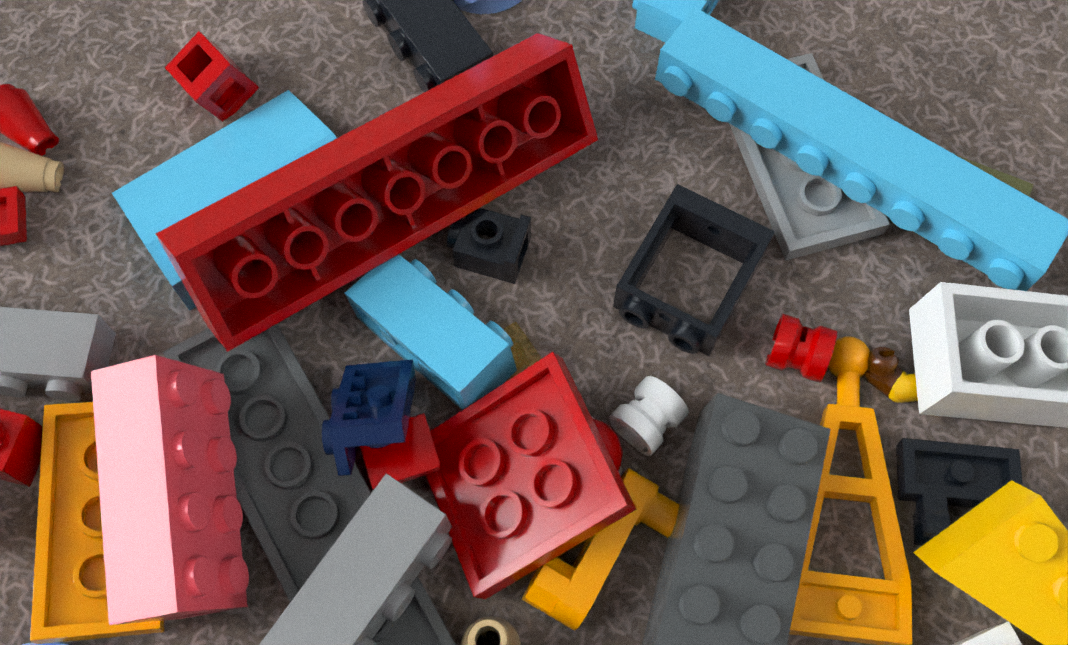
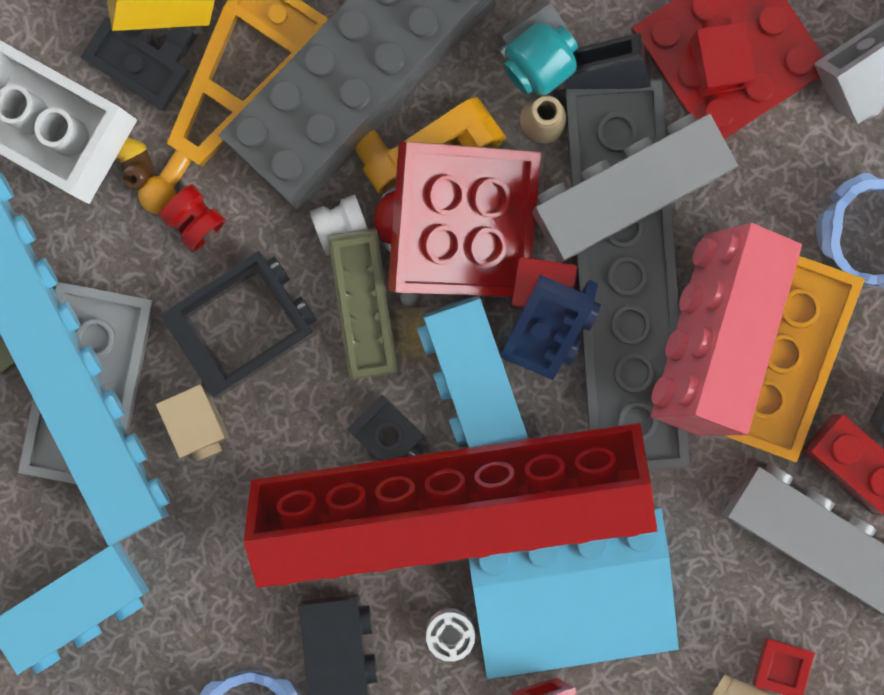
camera: 155 degrees left, 20 degrees up
(337, 113) = (450, 626): none -> white wheel
(589, 350) = (362, 303): none -> olive plate
(681, 159) = (193, 423): none -> tan brick

